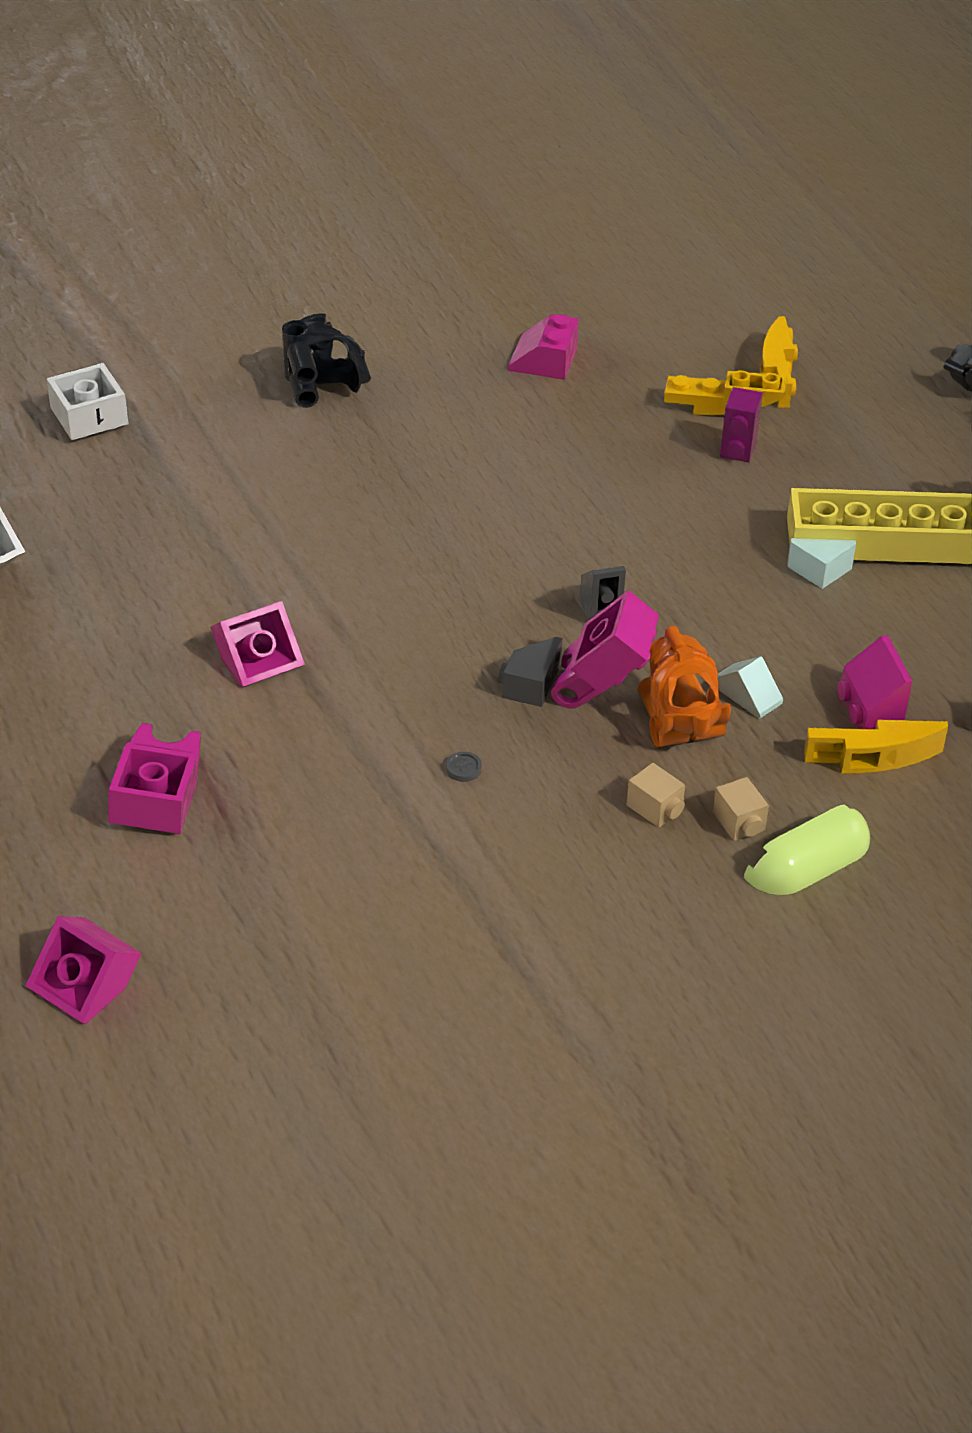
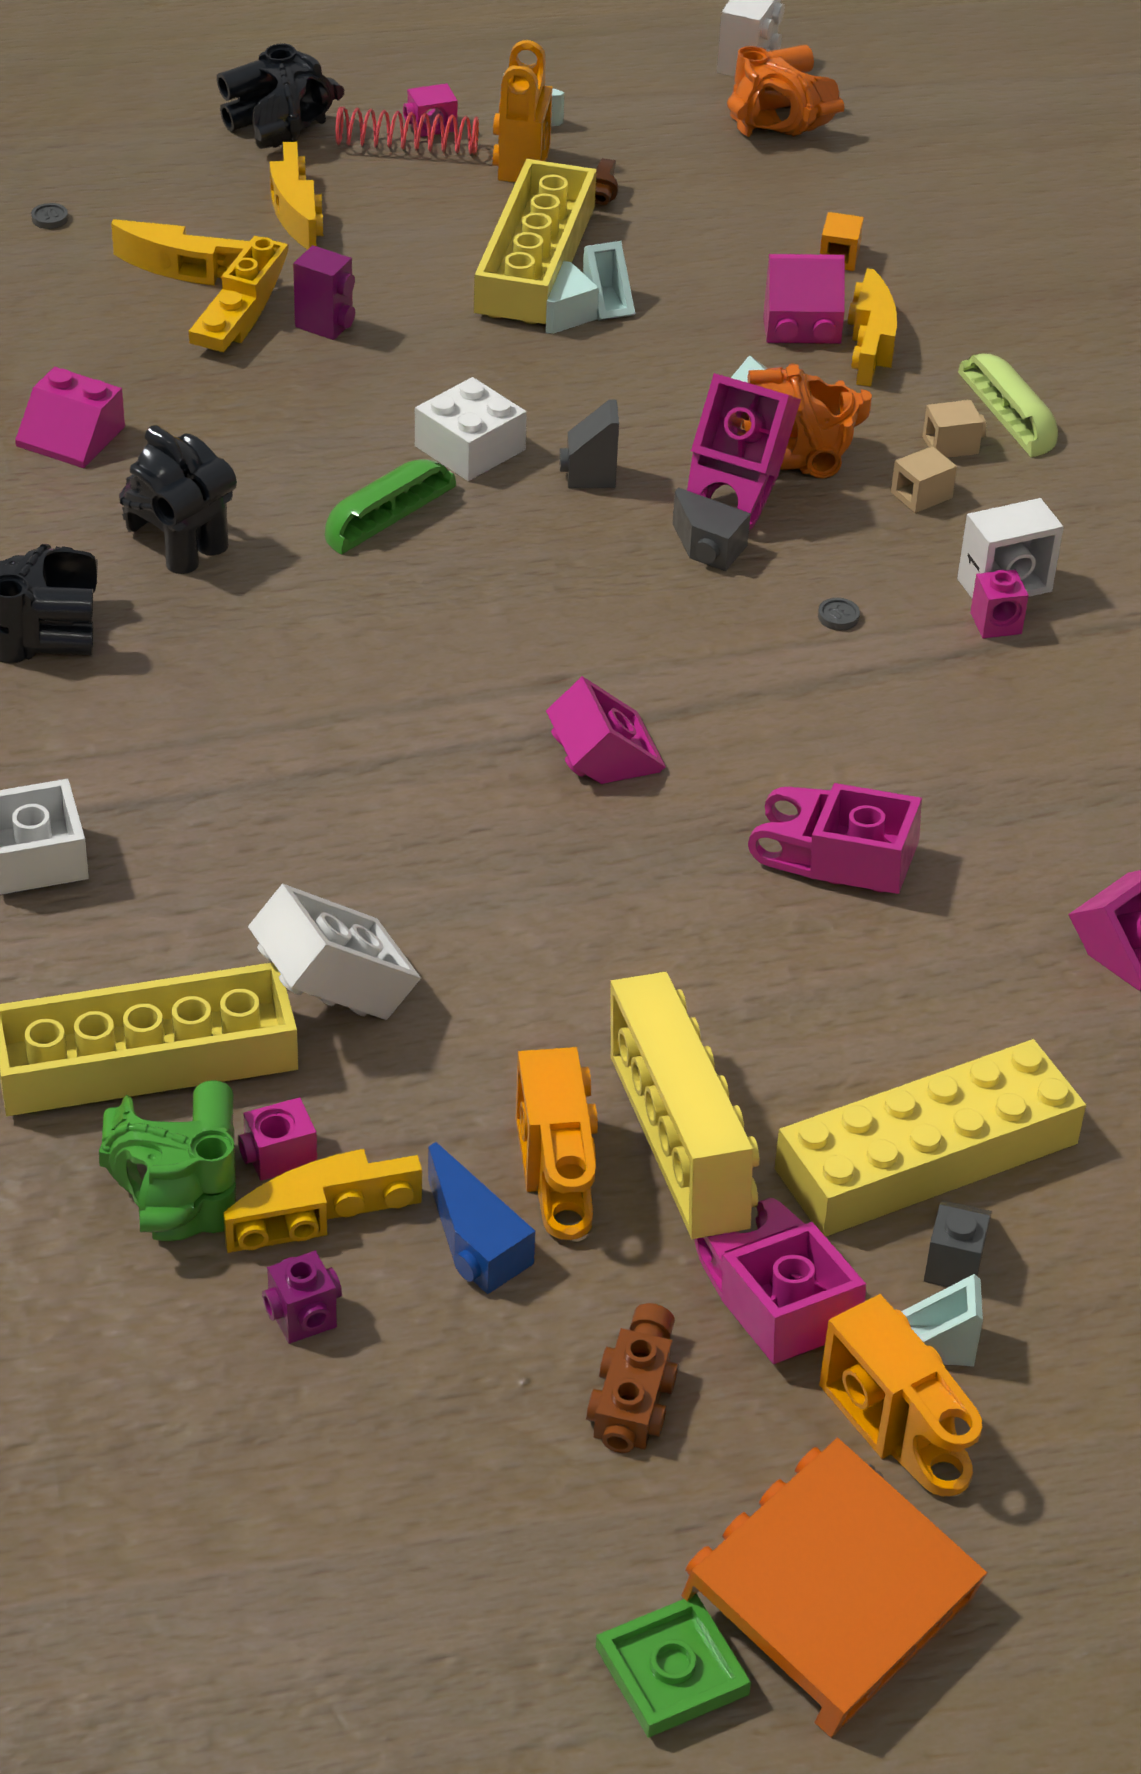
camera: 80 degrees left, 0 degrees up
(434, 388) = (181, 492): none -> black helmet
(487, 853) = (999, 603): none -> dark pink brick
(512, 505) = (386, 502): none -> bright green brick
(545, 845) = (1012, 538): none -> white brick
(611, 527) = (470, 428): none -> white brick
(805, 303) = (49, 215): none -> dark grey piece
(854, 576) = (607, 269): none -> light aqua slope
(880, 400) = (294, 197): none -> yellow slope

